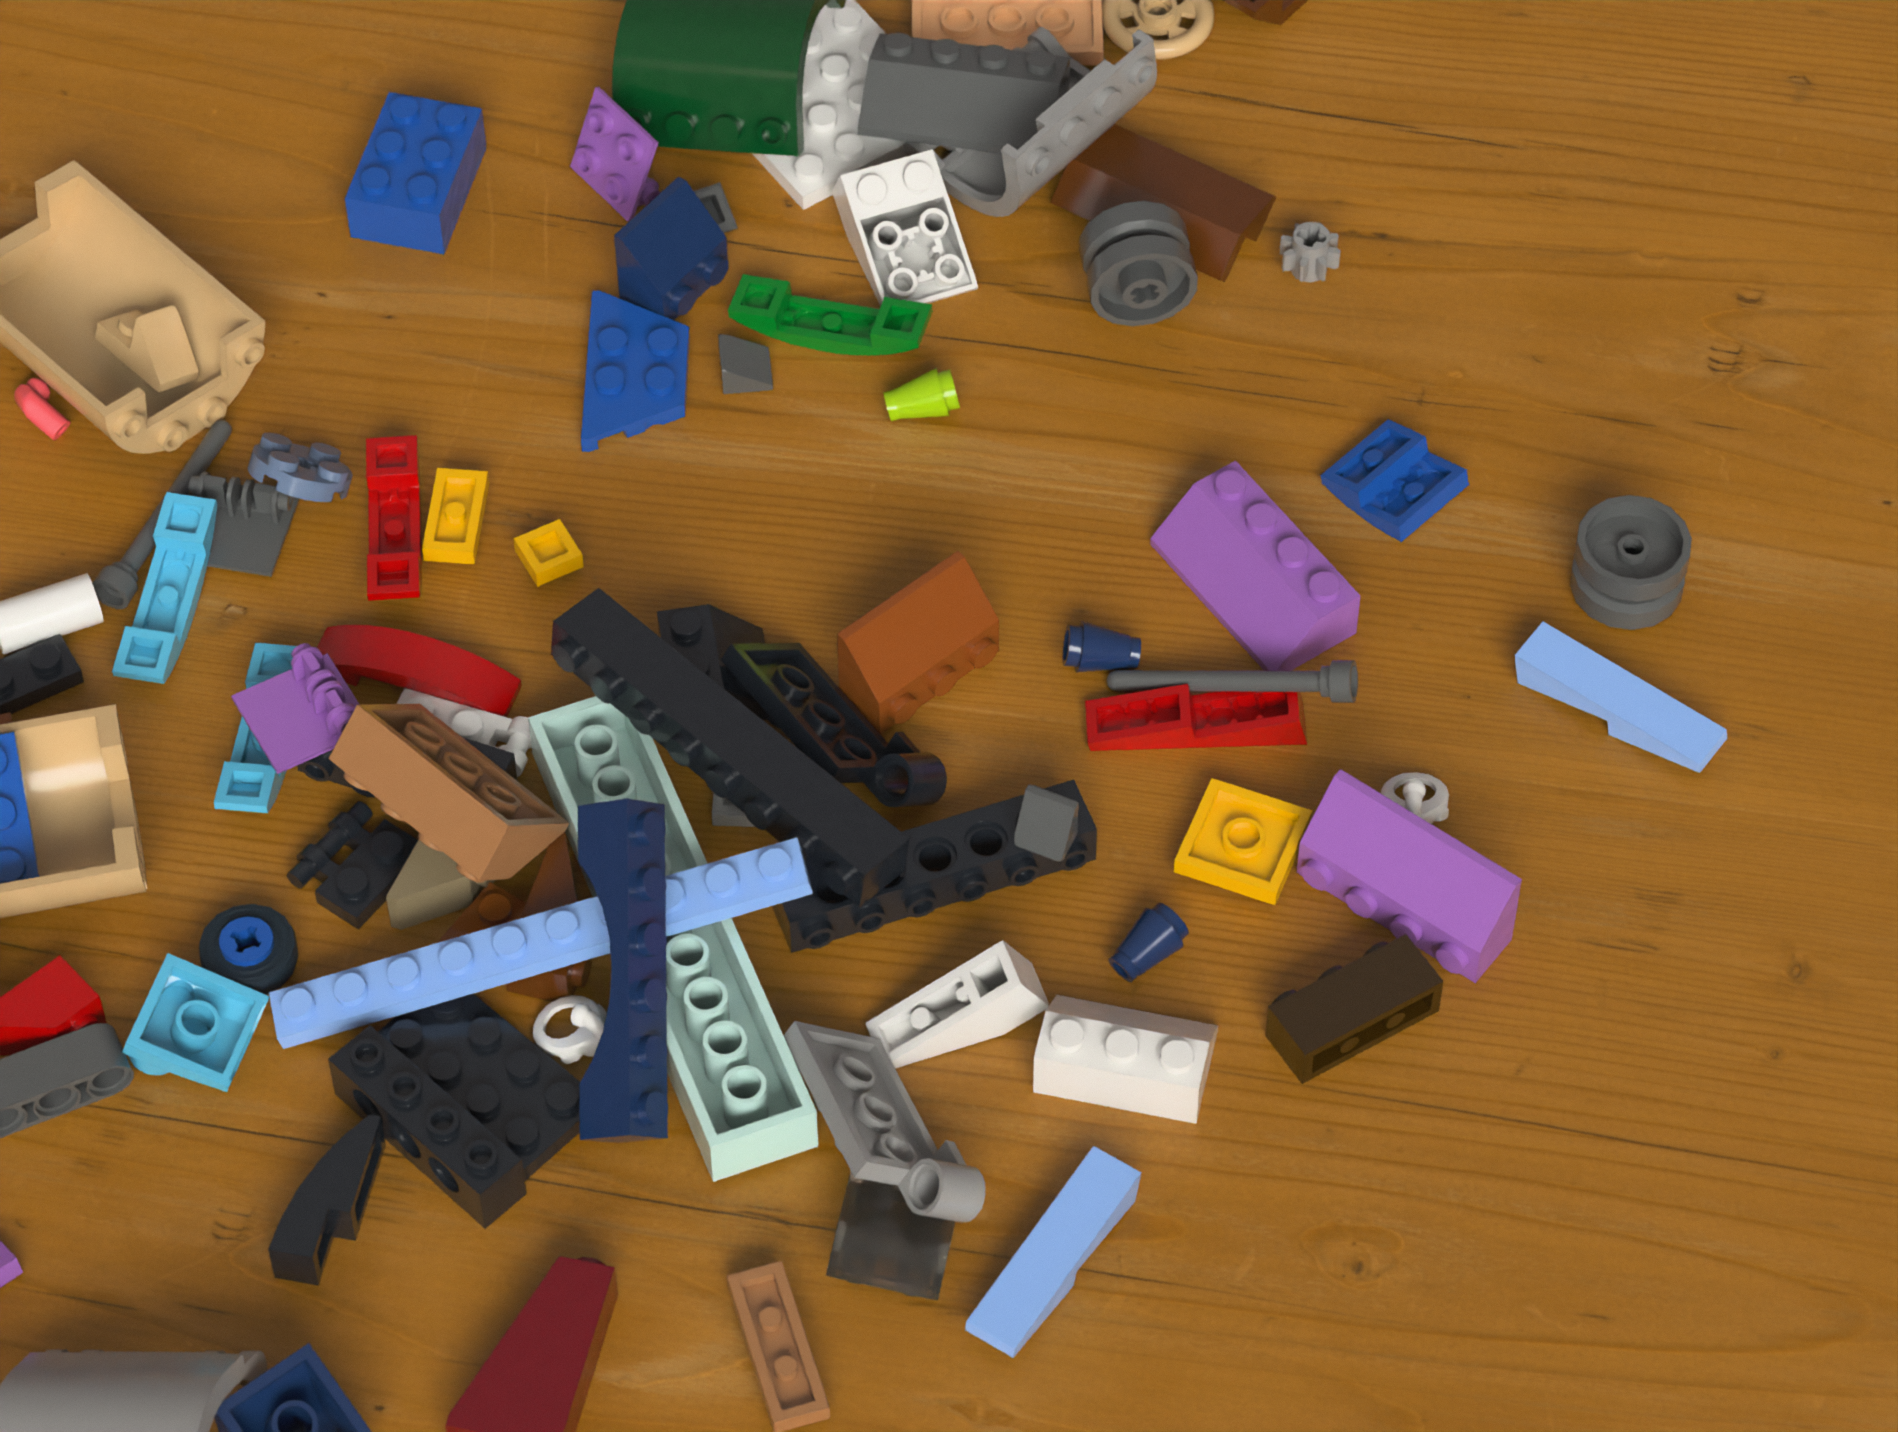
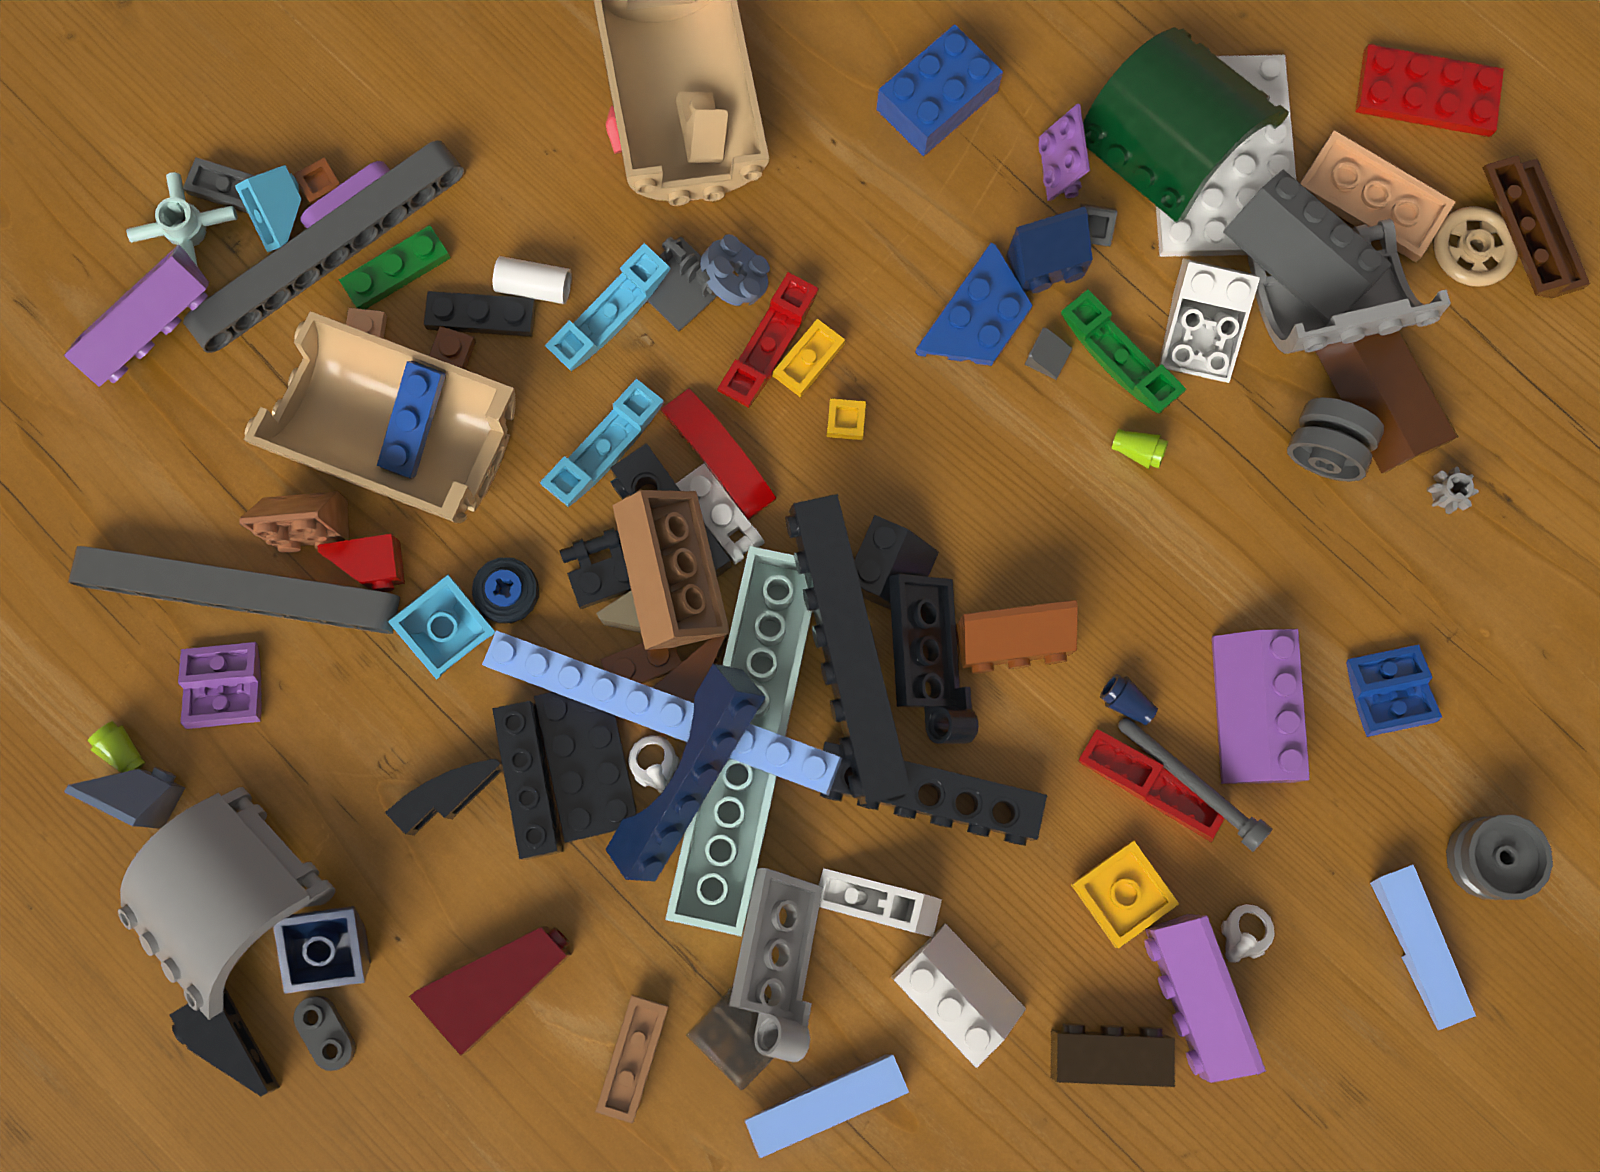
camera: 30 degrees right, 25 degrees up
(118, 582) = (589, 281): dark grey piece -> none
(298, 710) = (623, 454): medium lavender hinge -> none
(1046, 823) = (1005, 824): dark grey slope -> none
(1149, 941) = (1021, 927): dark blue cone -> none

